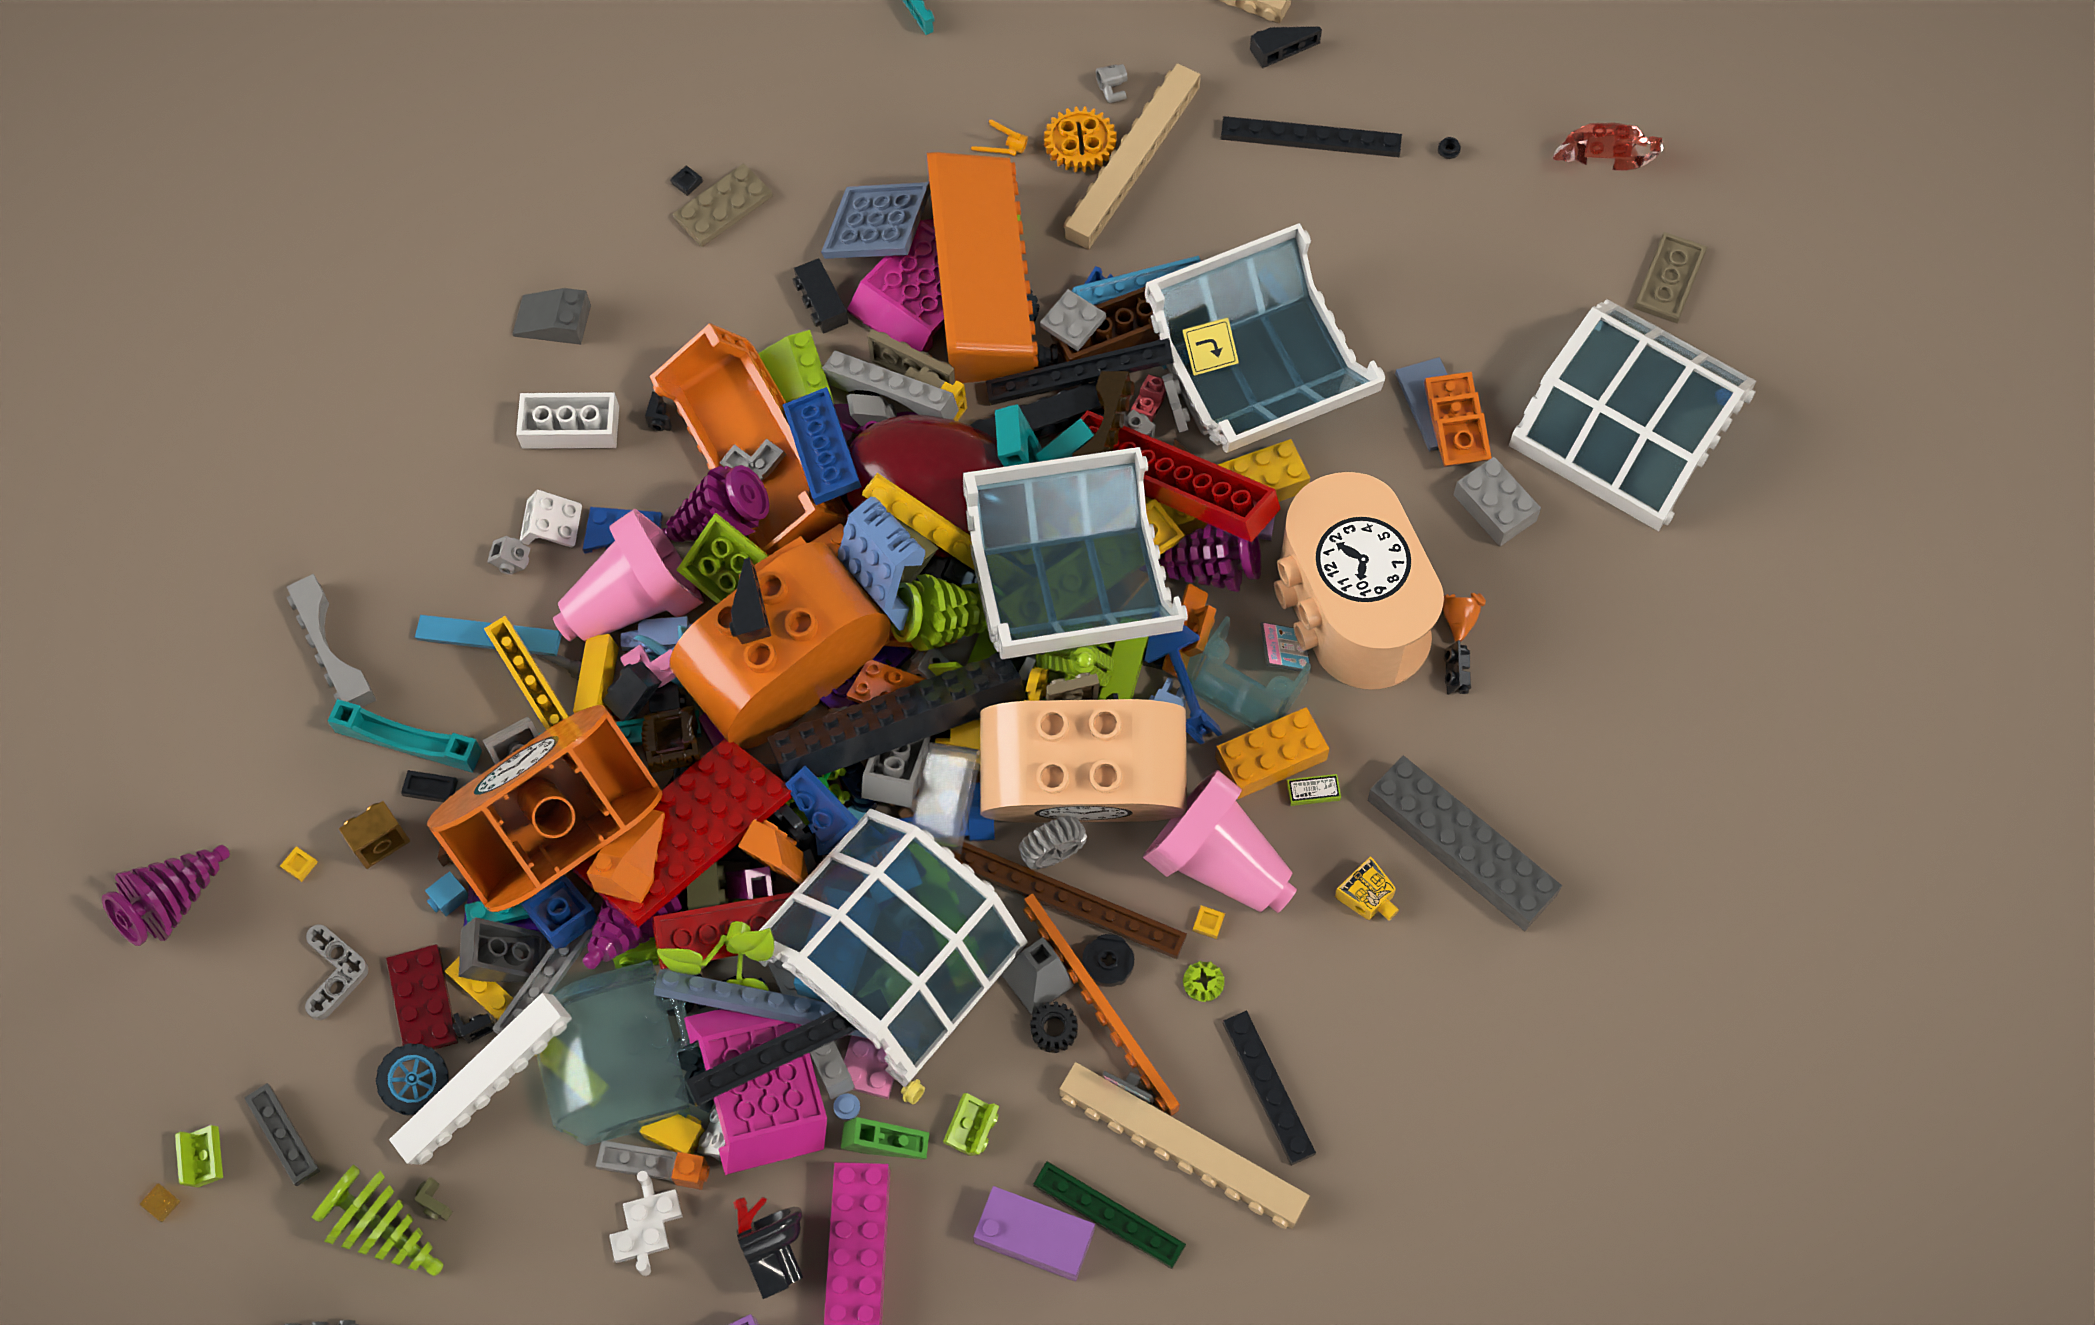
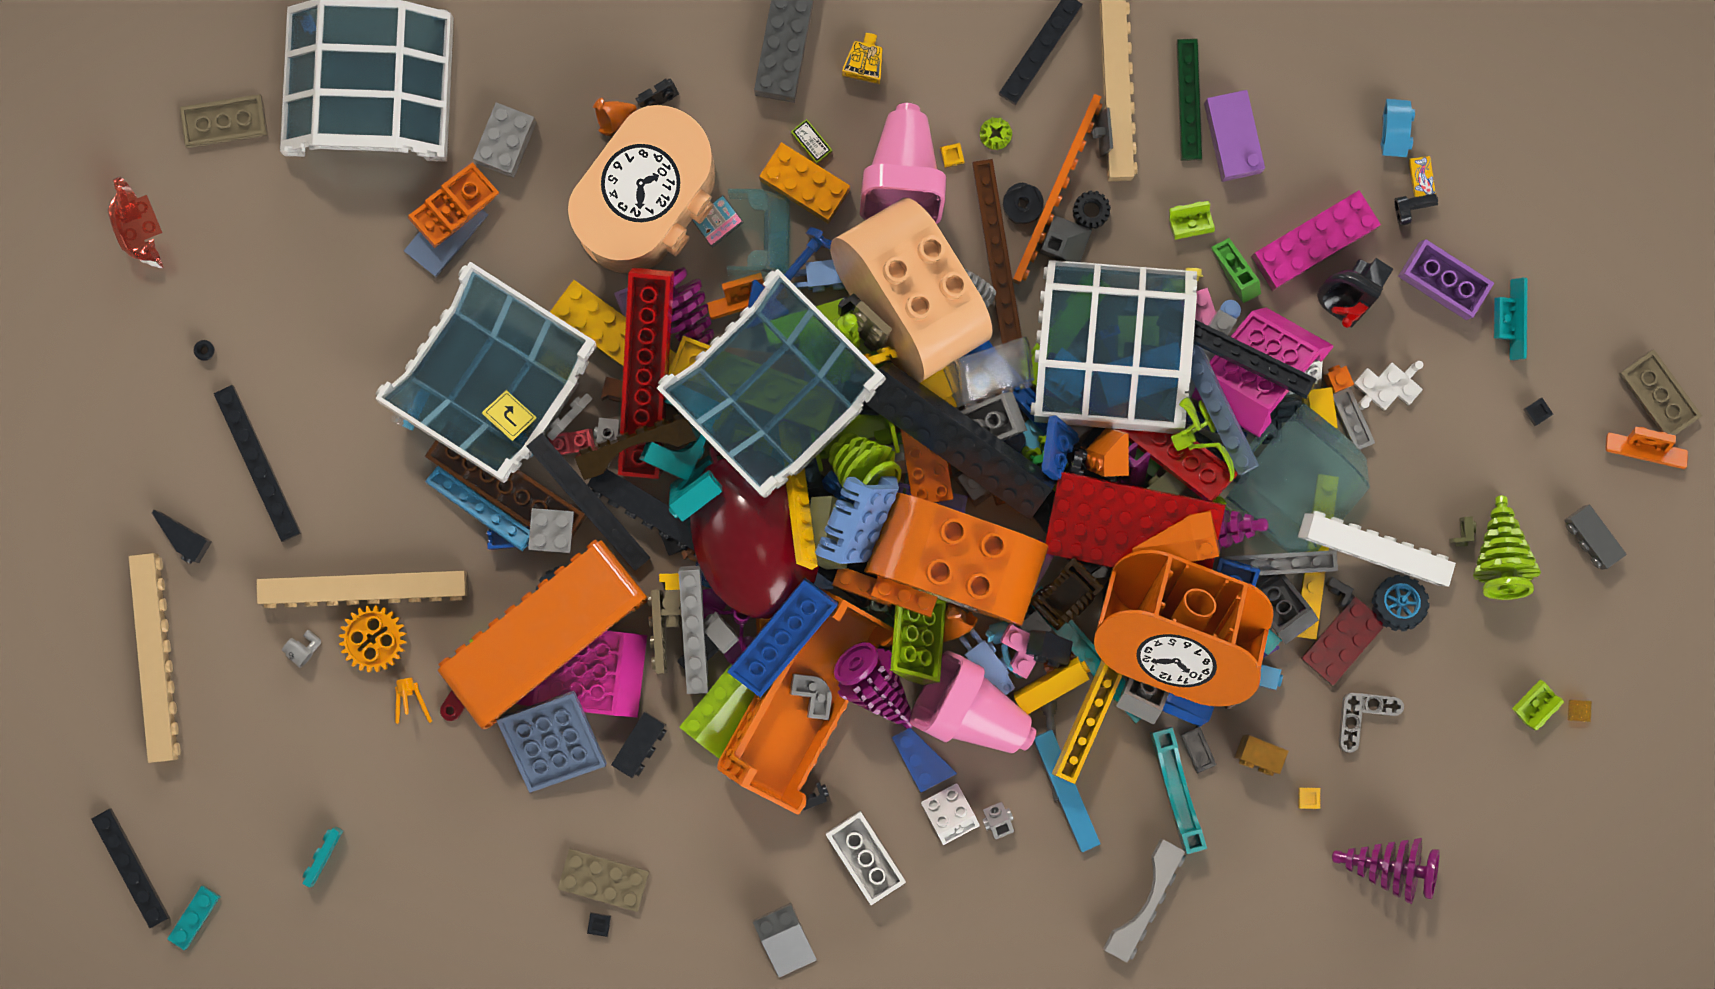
camera: 130 degrees left, 20 degrees up
(282, 1134) = (1488, 664): dark grey plate -> none
(748, 607) = (973, 567): black slope -> none
(1047, 355) = (583, 538): black wheel -> none

